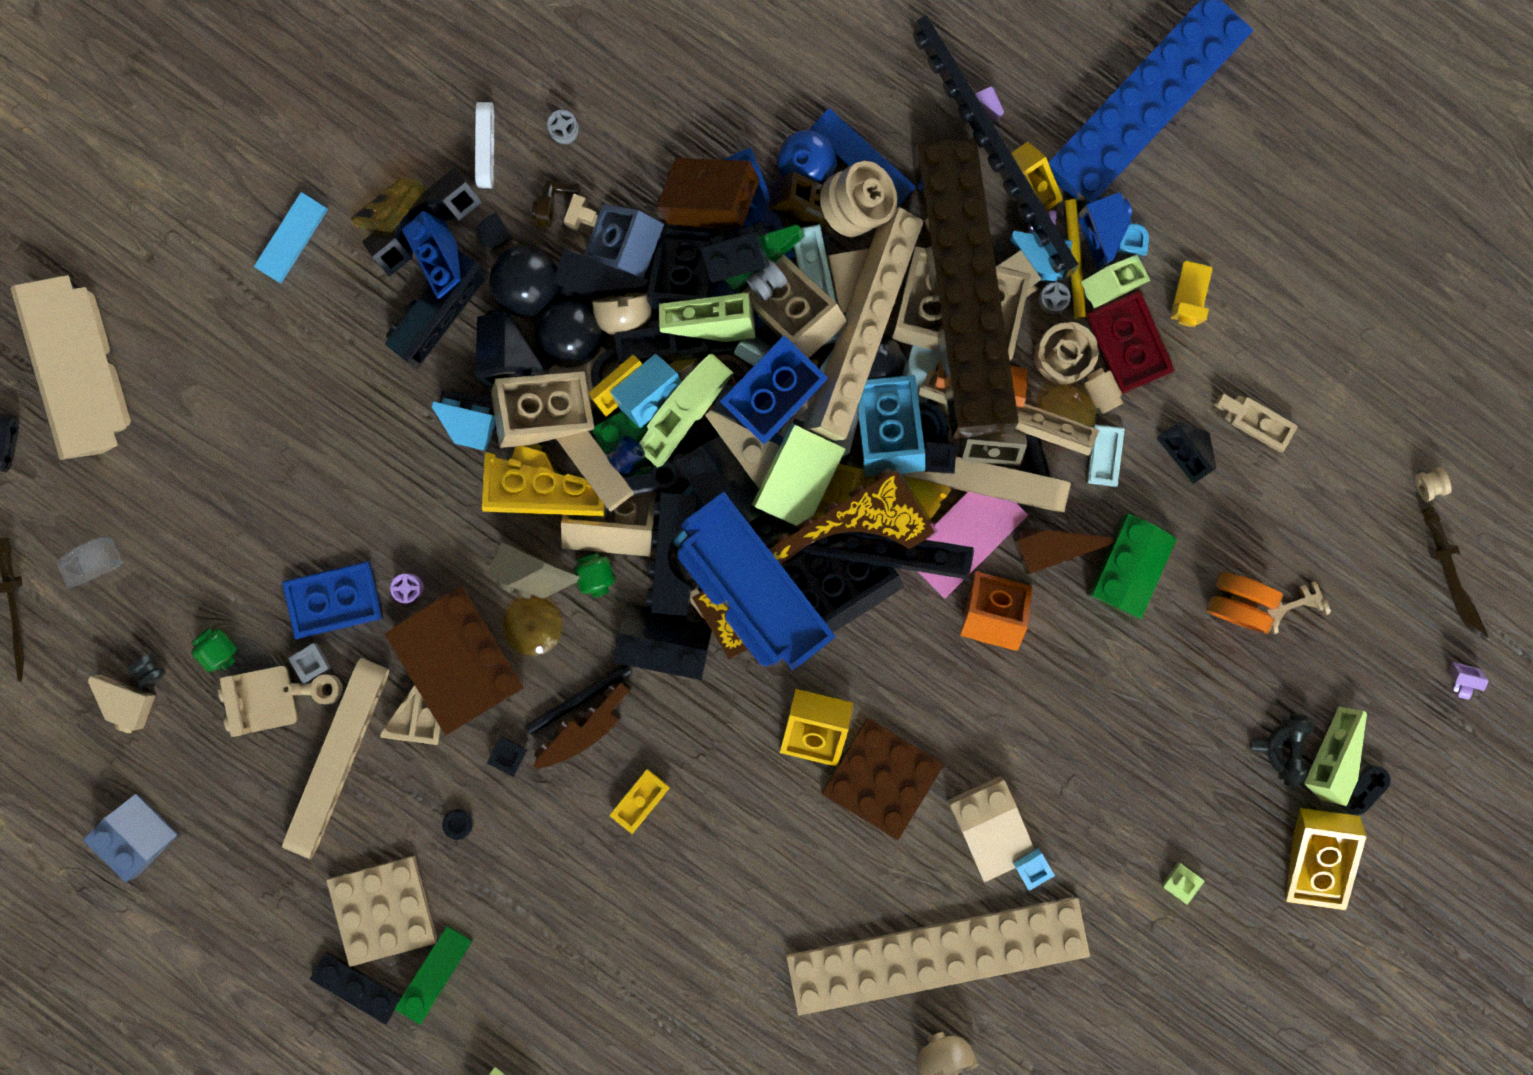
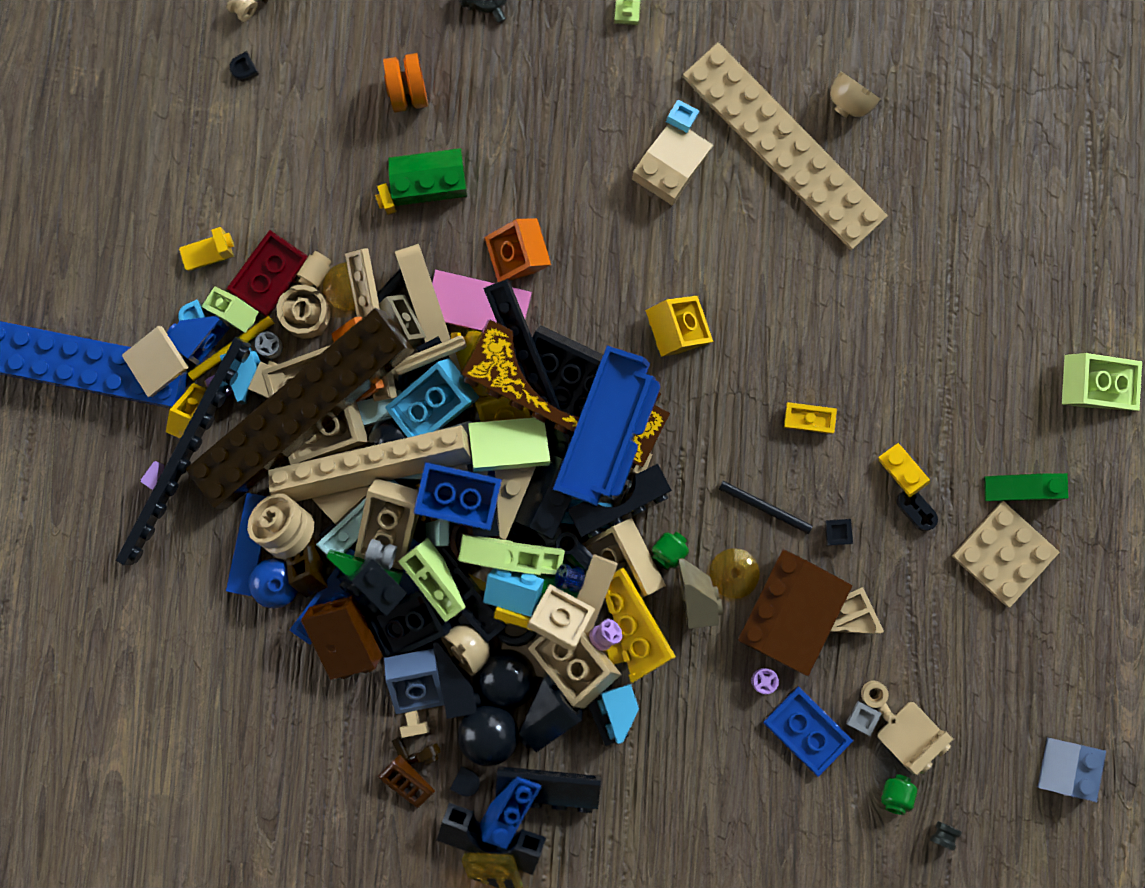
camera: 125 degrees left, 5 degrees down
(121, 703) = (980, 839): tan slope -> none
(335, 758) = (919, 655): tan beam -> none
(356, 987) = (1071, 538): black plate -> none
(457, 824) = (909, 538): black tile -> none
(482, 857) = (913, 515): none -> black beam
(484, 145) = (405, 828): white beam -> none
(528, 862) = (904, 470): none -> yellow plate
(540, 179) = (394, 781): none -> reddish brown slope
(547, 455) = (605, 635): none -> lavender wheel
(560, 121) = (353, 782): light grey wheel -> none
(576, 737) = (793, 489): reddish brown slope -> none
(590, 420) = (560, 618): none -> tan plate
(663, 642) = (687, 470): black slope -> none
(883, 778) = (685, 258): reddish brown plate -> none
(938, 454) = (431, 354): none -> tan axle
(1050, 548) = (451, 241): reddish brown slope -> none
(1103, 170) = (155, 361): none -> tan tile
(1106, 456) = (366, 237): light aqua tile -> none
(1133, 506) = (384, 199): none -> yellow plate
(1189, 449) = (320, 185): black slope -> none
(1257, 421) = (270, 151): tan hinge -> none
(1315, 600) = (373, 37): tan piece -> none
(1365, 446) = (242, 67): none -> black tile

